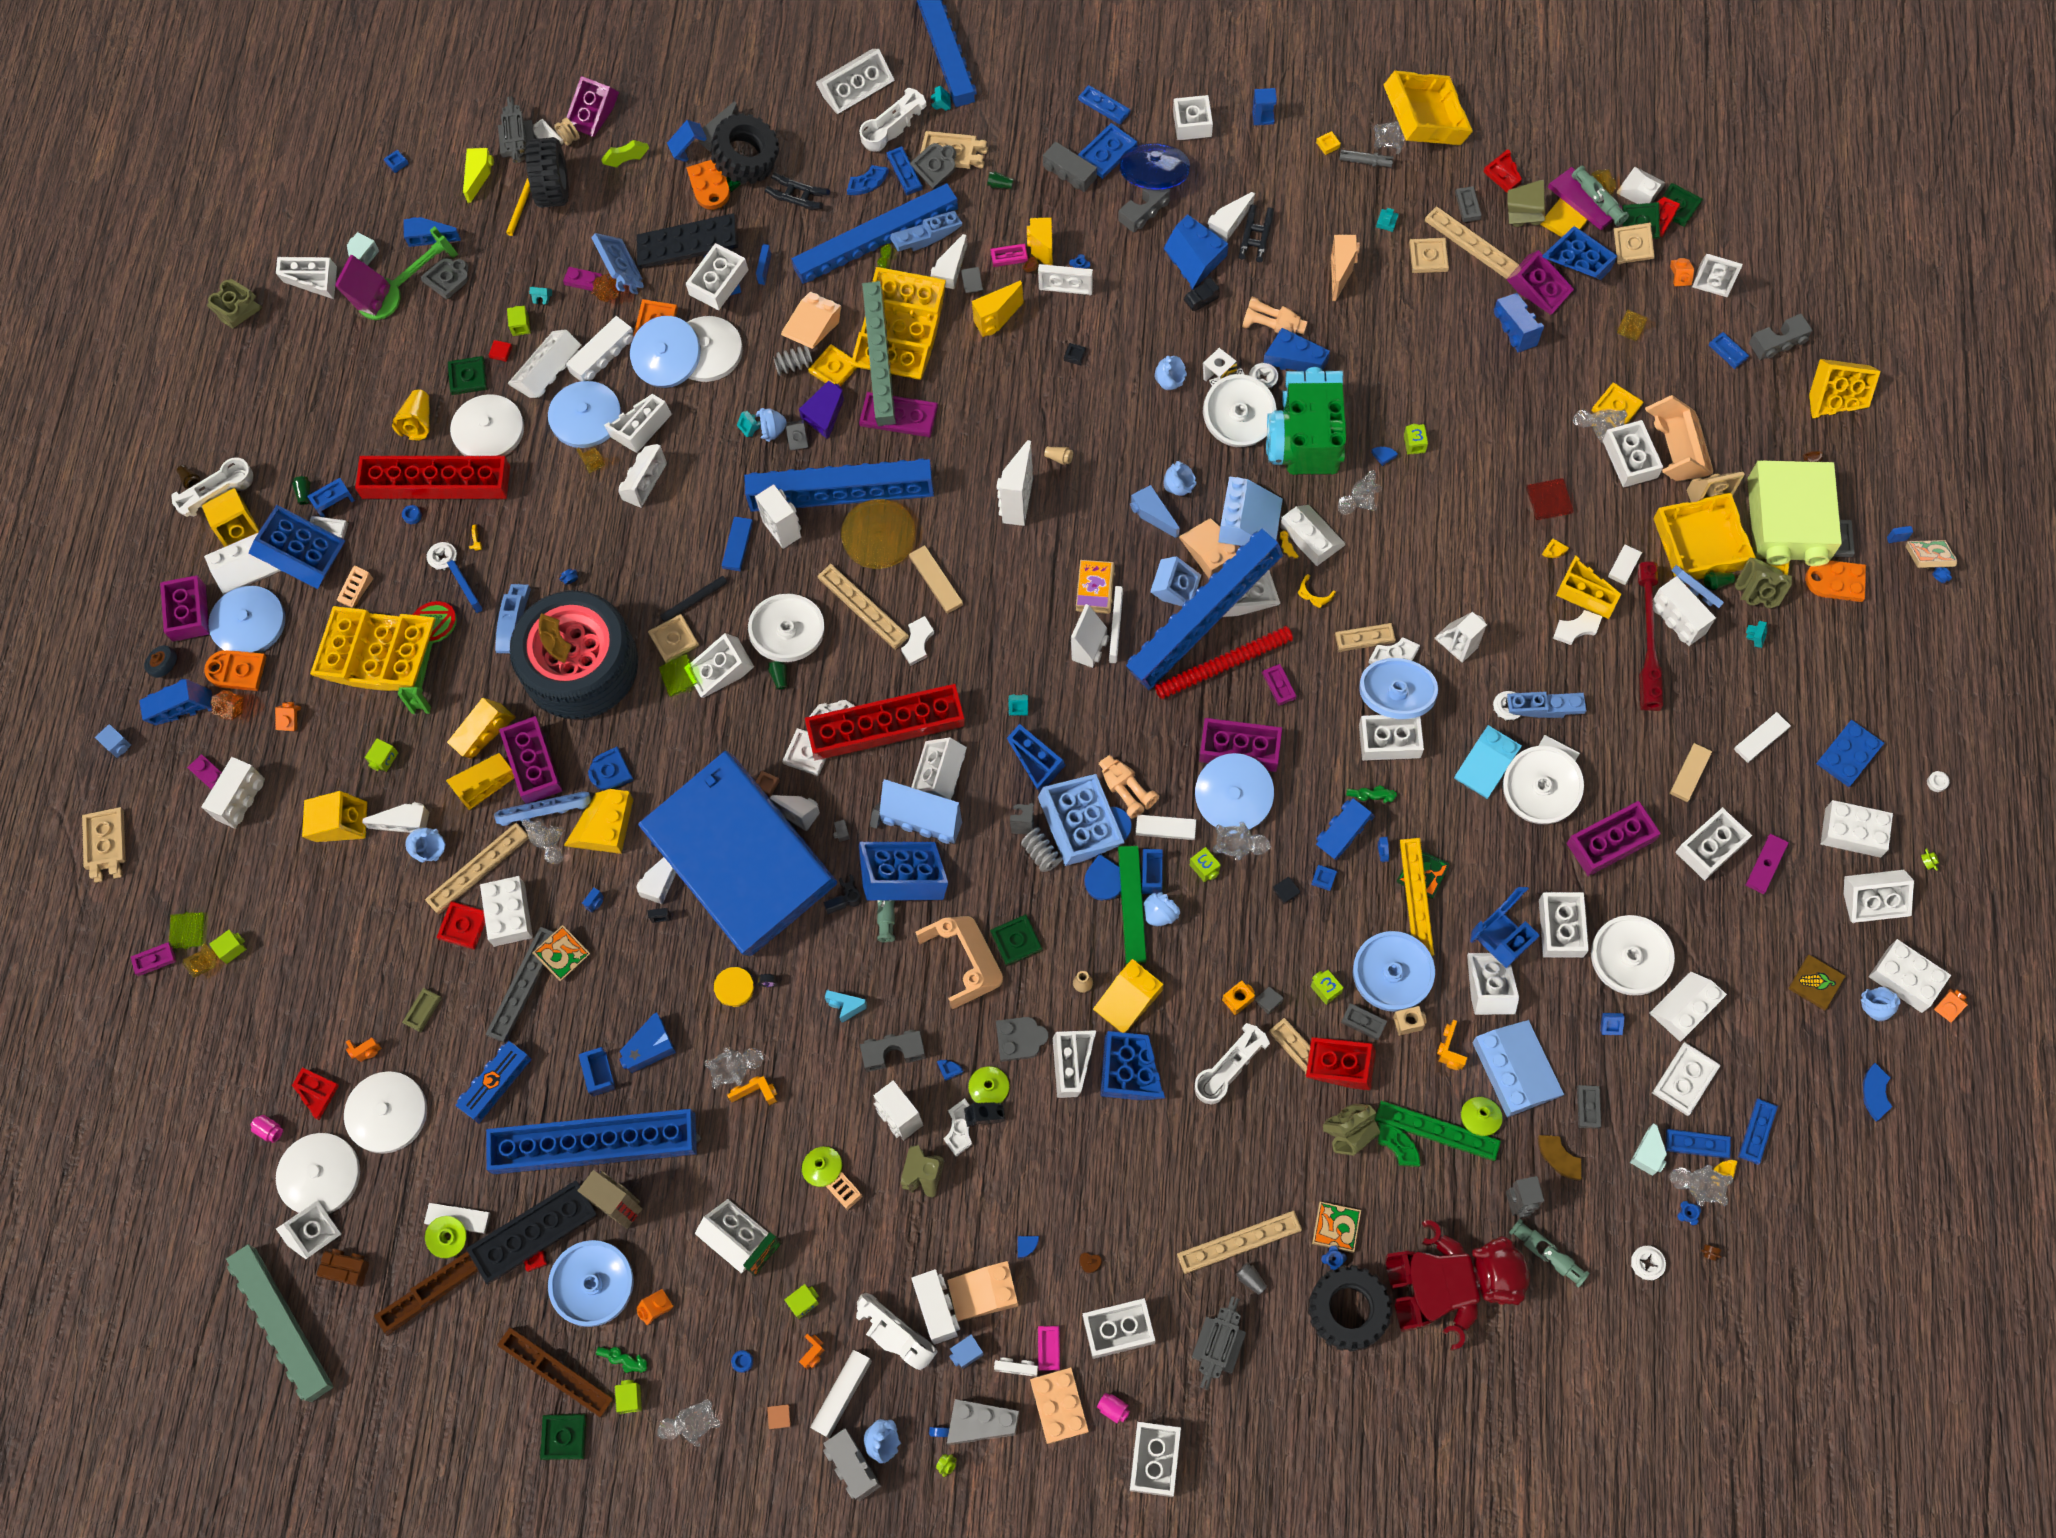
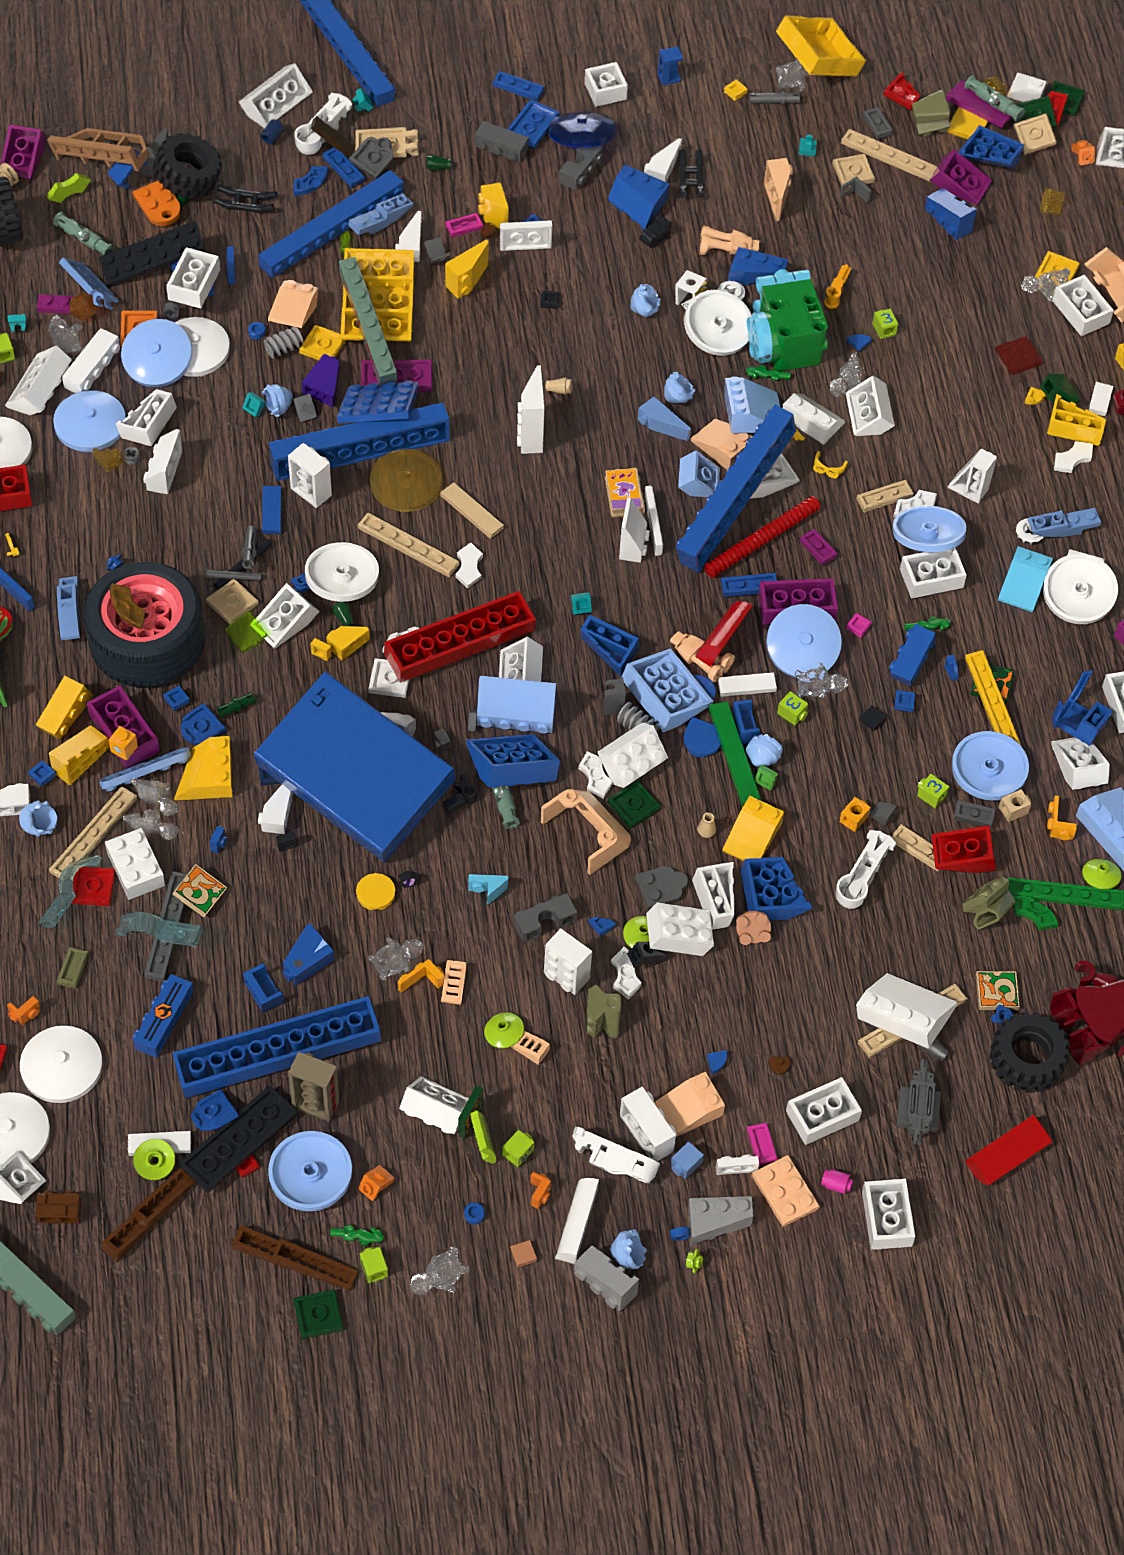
camera: 20 degrees left, 10 degrees down
(432, 933) = (66, 892): none -> clear light blue piece
(443, 794) = (42, 773): none -> blue plate
(511, 989) = (160, 929): none -> clear light blue piece
(515, 1197) = (213, 1112): none -> blue tile
(519, 783) = (123, 743): none -> light orange brick
(532, 869) = (151, 823): none -> clear animal
(578, 318) = (64, 337): none -> clear animal
(592, 736) = (176, 698): none -> blue plate
(615, 465) = (129, 459): none -> dark grey bush
(627, 206) = (75, 229): none -> sand green piece
(648, 754) = (236, 704): none -> dark green pin
(658, 118) = (76, 146): none -> medium nougat plate
(679, 611) = (232, 575): none -> dark grey bar
(693, 305) = (171, 310): none -> dark grey bush
(700, 589) = (249, 551): none -> dark grey pin
(742, 635) = (300, 587): none -> blue plate
(745, 709) = (320, 649): none -> yellow tile
(767, 1285) = (483, 1137): none -> lime slope
(772, 341) = (256, 330): none -> blue tile
(774, 703) = (347, 640): none -> yellow slope
(778, 1101) = (458, 970): none -> light nougat slope
(841, 120) = (272, 131): none -> dark blue brick
(867, 446) = (378, 402): none -> blue plate
(897, 137) = (332, 137): none -> dark brown tile
(986, 909) = (598, 783): none -> white tile
(1022, 1095) = (680, 929): none -> white brick
(1024, 889) = (632, 754): none -> white brick
(1099, 1106) = (753, 927): none -> nougat piece
(1152, 767) = (723, 632): none -> red brick
(1157, 938) = (766, 777): none -> bright green tile
(1193, 714) = (744, 584): none -> blue plate
(1233, 1231) = (905, 1009): none -> white slope
(1272, 472) = (762, 371): none -> green animal
(1299, 781) = (858, 625): none -> dark pink tile
(1300, 1413) = (1008, 1151): none -> red brick
(1372, 393) = (835, 290): none -> light orange connector
(1374, 534) = (870, 408): none -> white slope
(1429, 276) = (858, 187): none -> dark grey bracket
(1583, 546) = (1059, 384): none -> dark green slope

